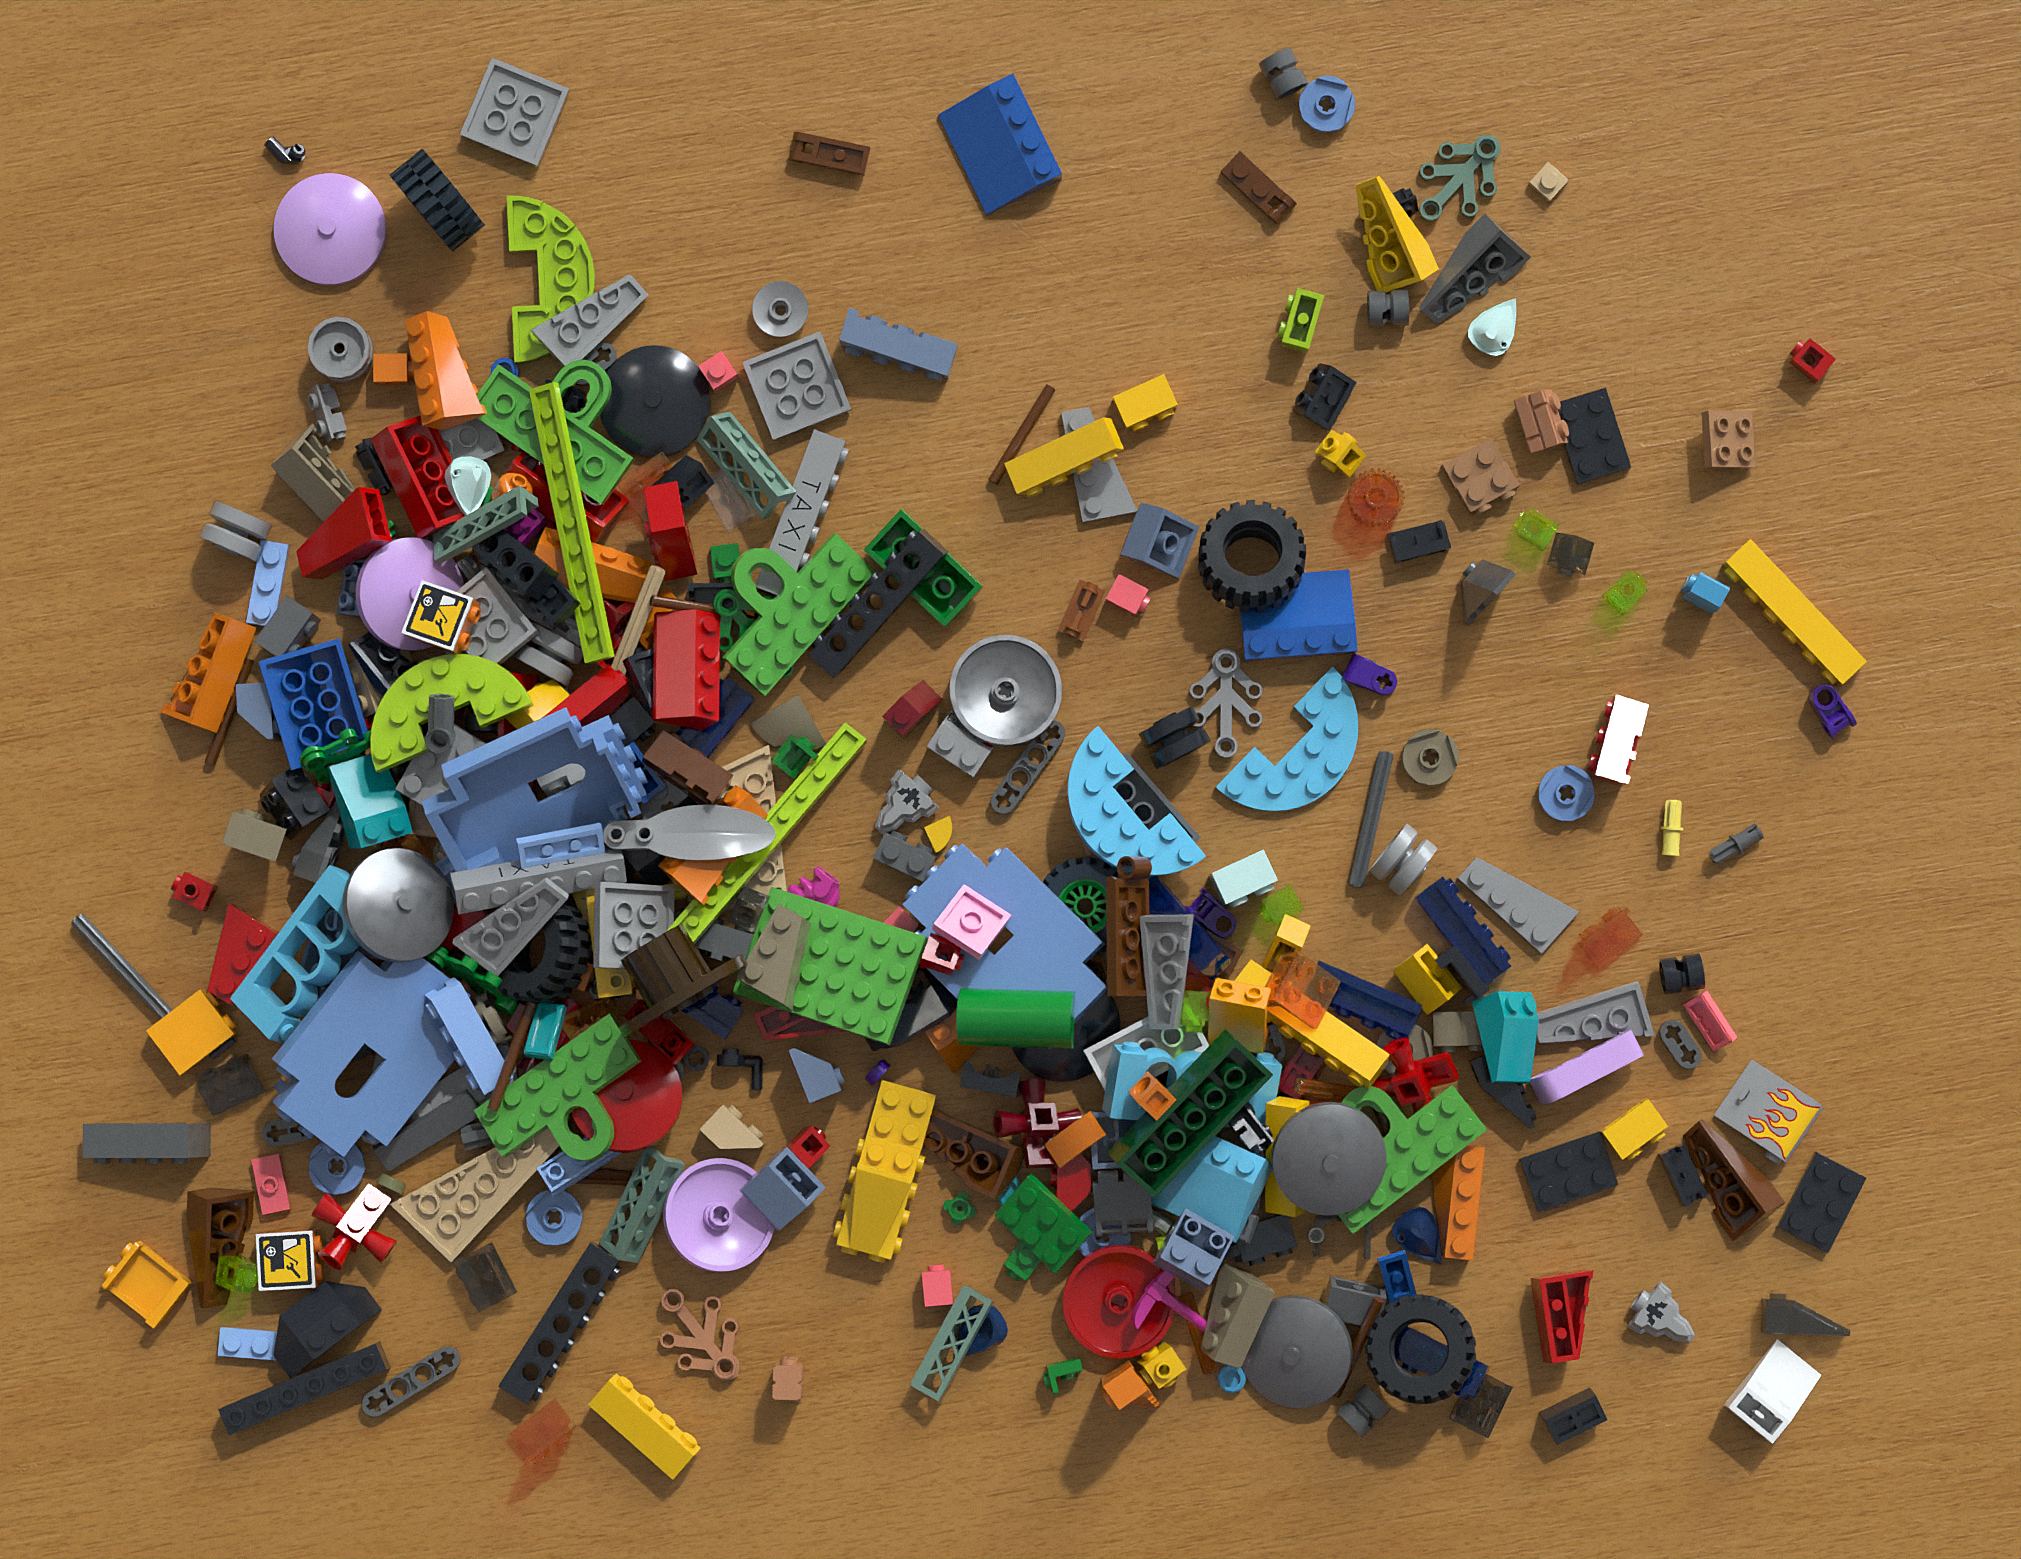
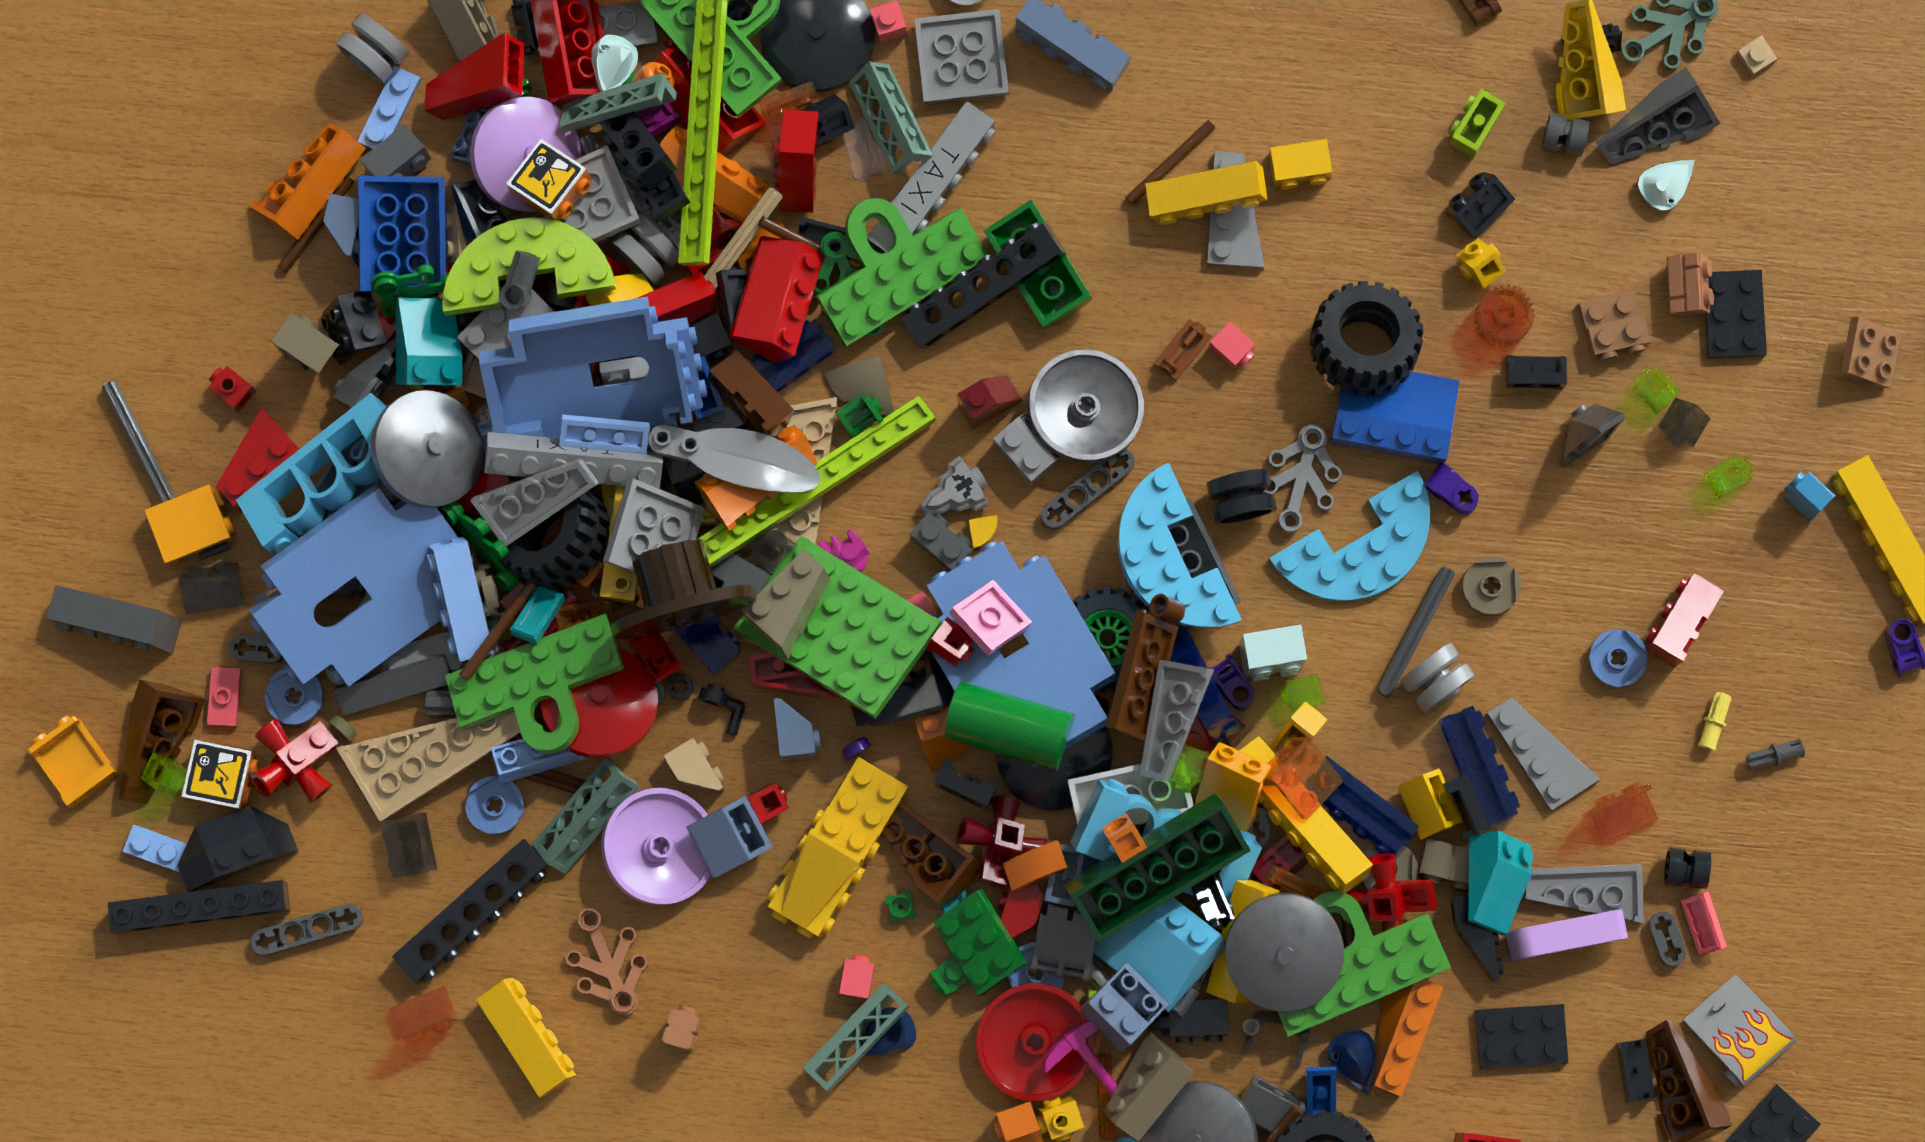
camera: 15 degrees right, 5 degrees down
(723, 560) = (841, 204): green bracket -> none
(1066, 1369) = (963, 1097): green bracket -> none
(1159, 540) = (1279, 300): sand blue slope -> none
(1634, 1129) = (1599, 1011): yellow brick -> none

